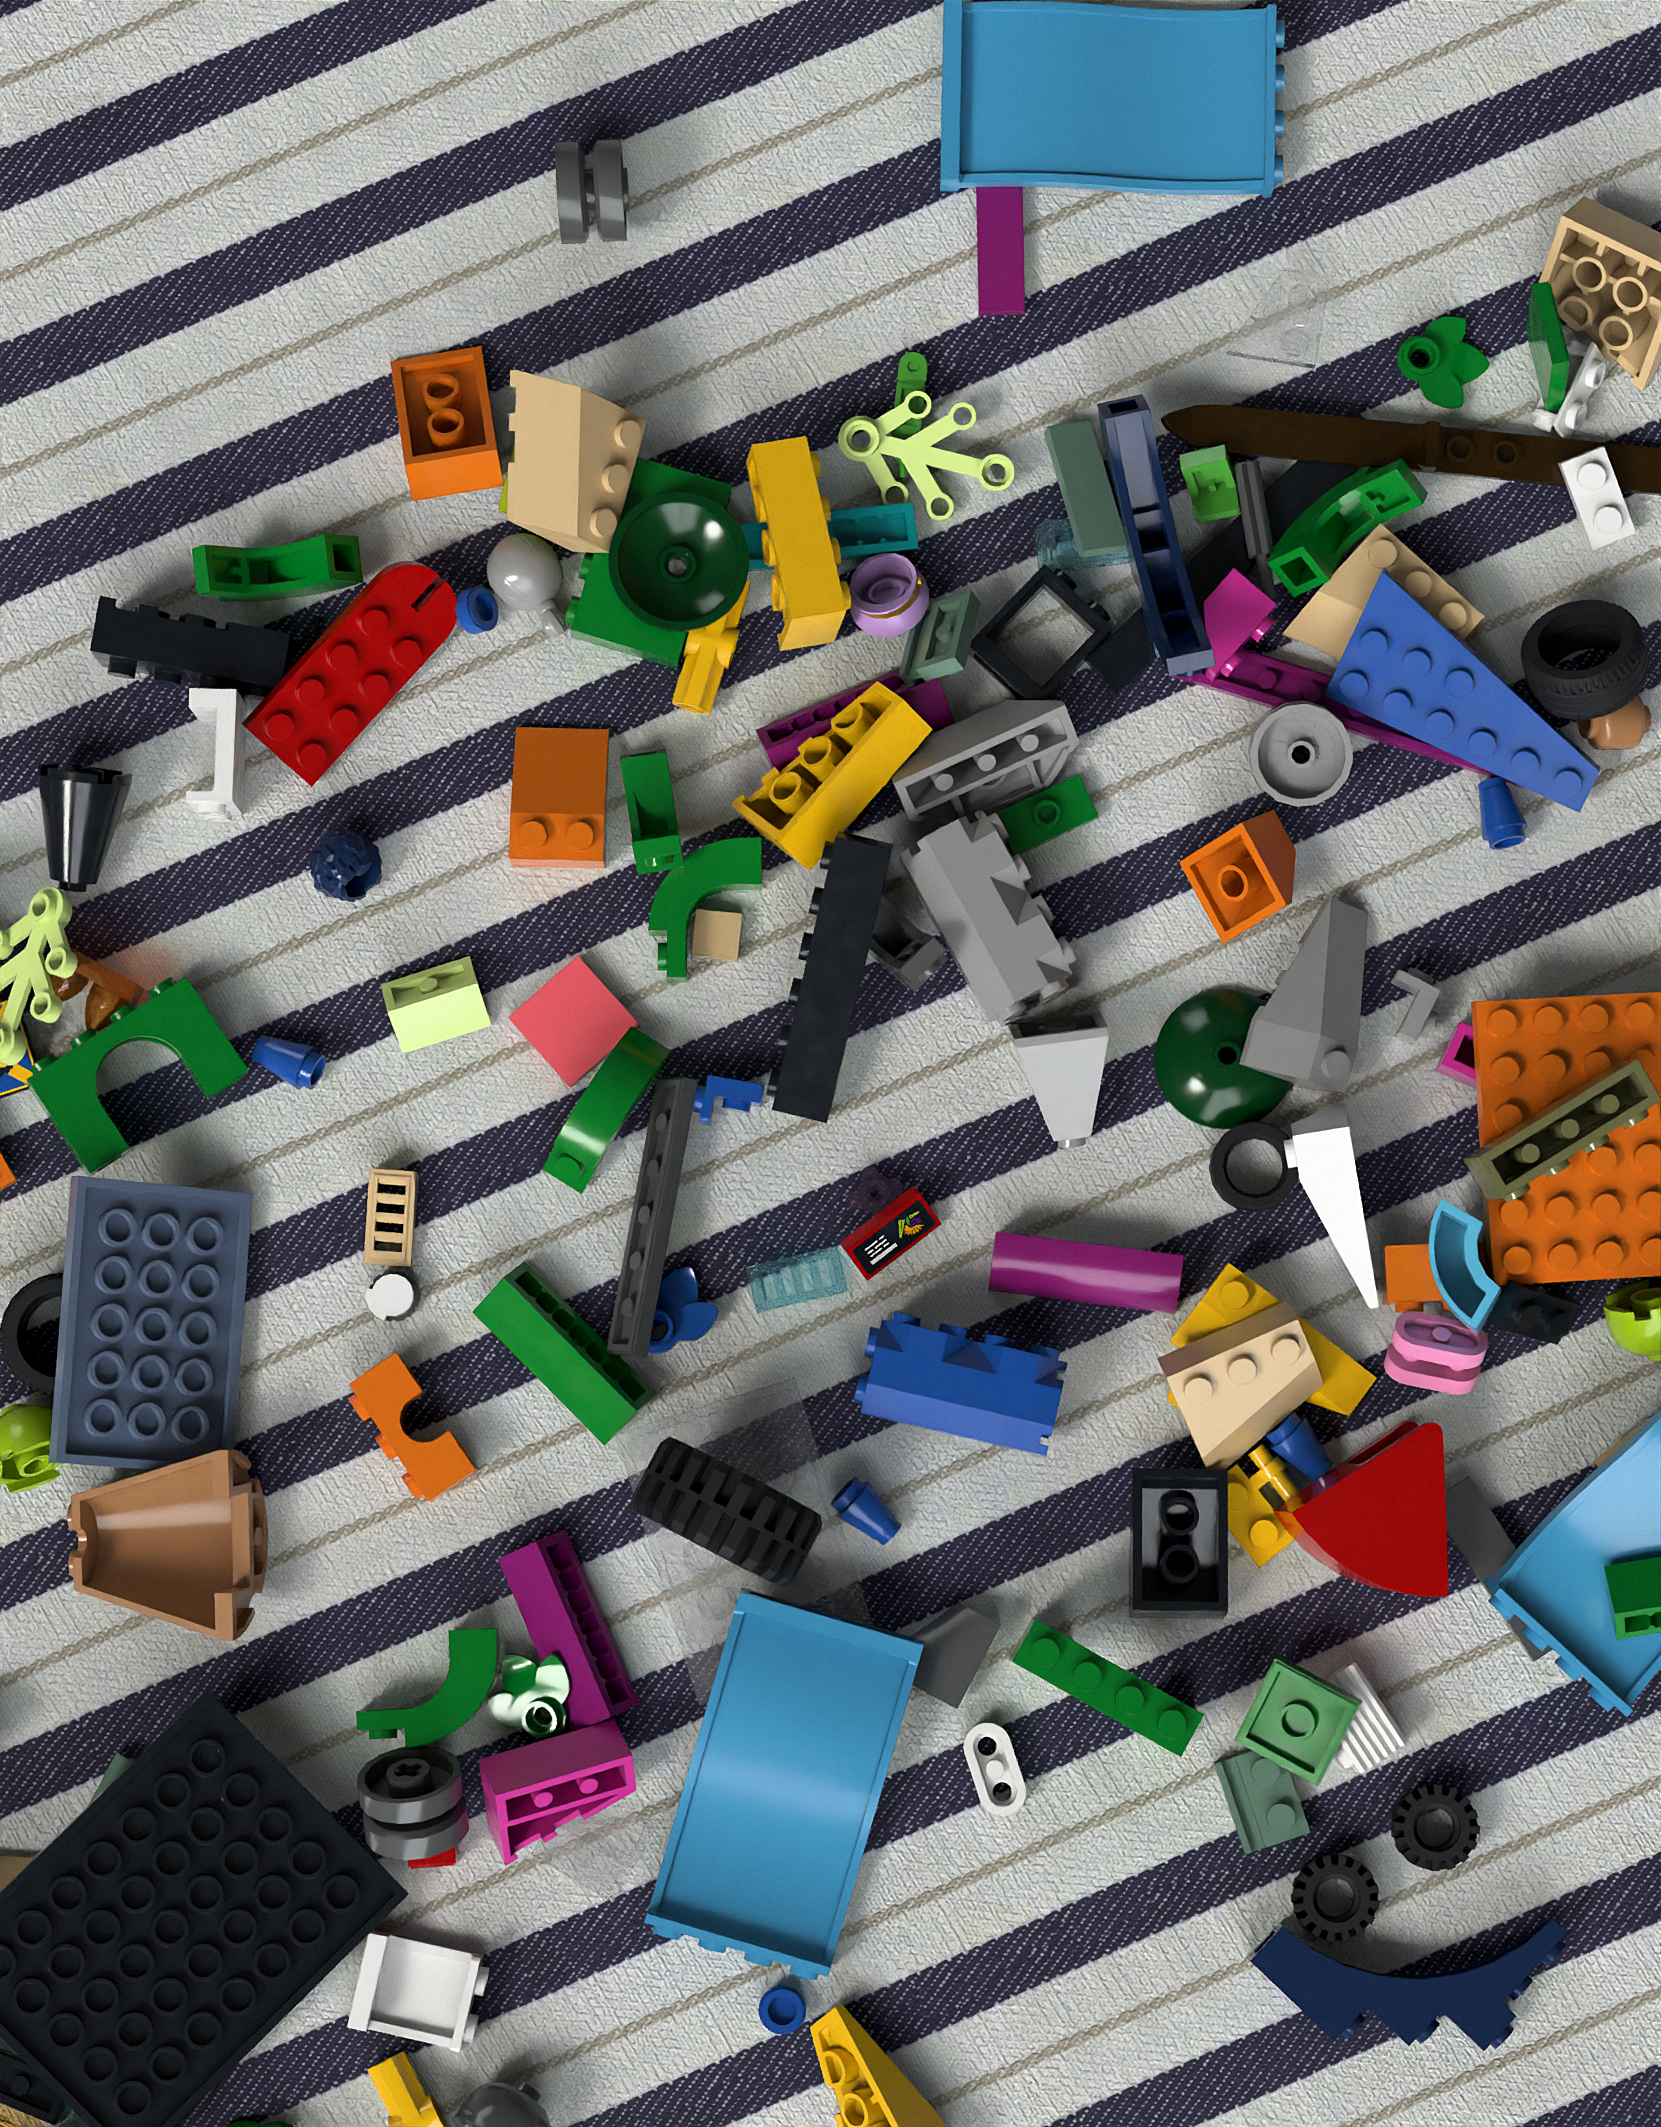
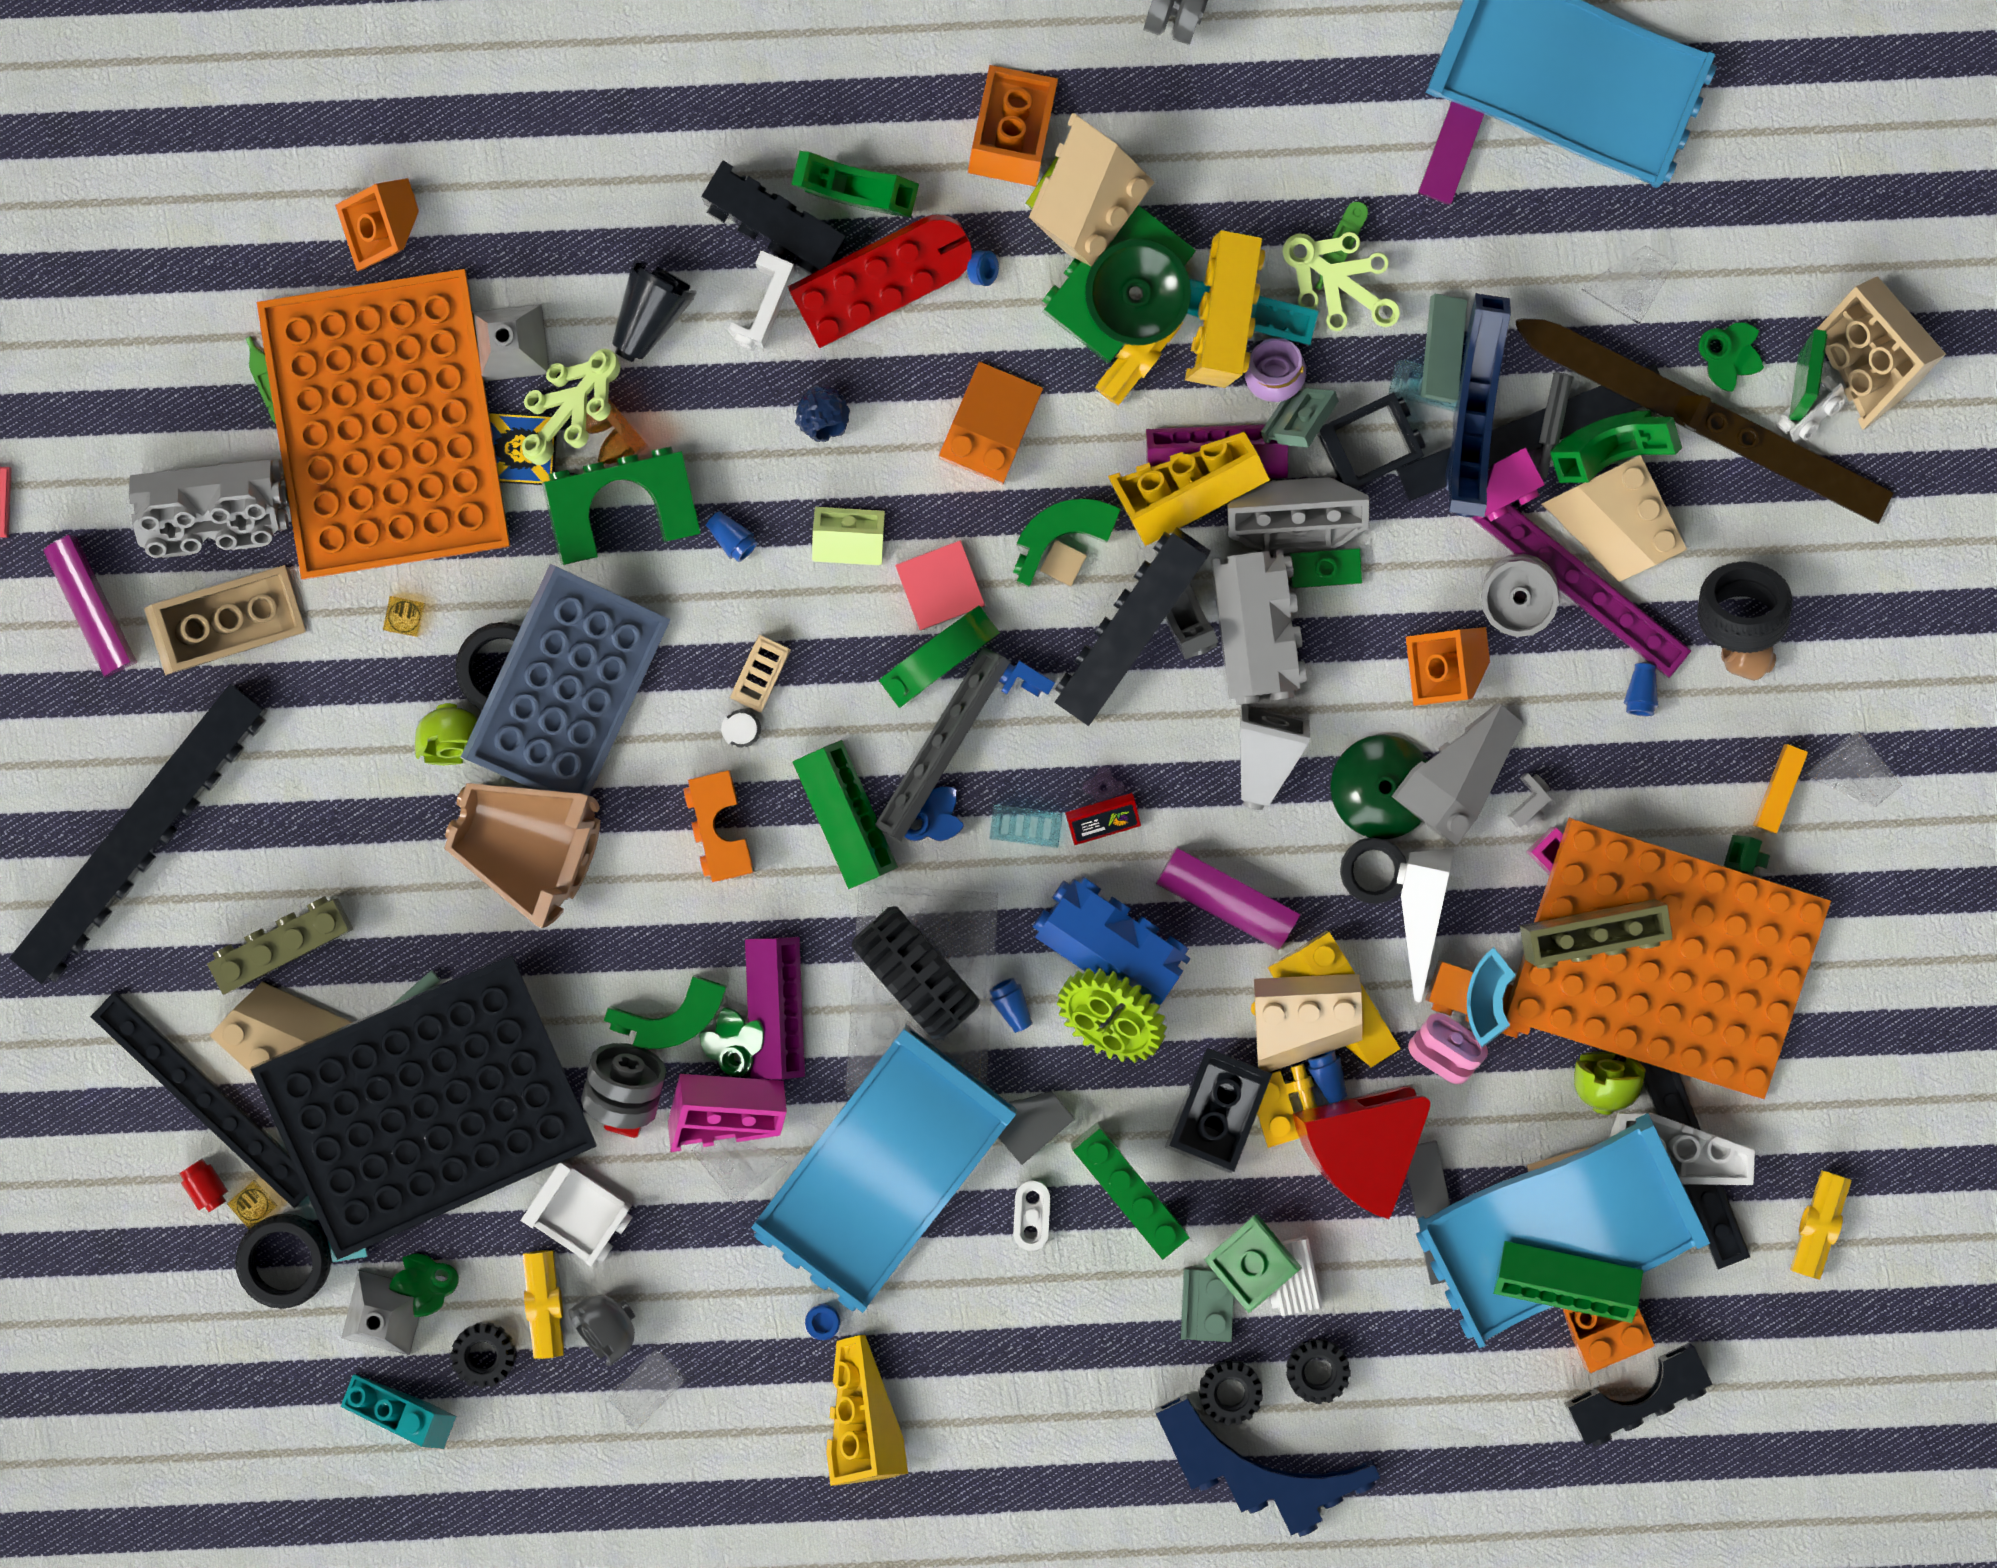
camera: 20 degrees right, 5 degrees up
(528, 577) = (1028, 258): light grey hair -> none
(651, 812) = (1051, 460): green arch -> none
(1030, 1481) = (1132, 1030): none -> lime gear
(1210, 483) = (1533, 379): bright green bracket -> none
(1438, 689) = (1634, 588): blue wing -> none
(1533, 1312) = (1526, 1047): black plate -> none
(1597, 497) = (1800, 494): white plate -> none

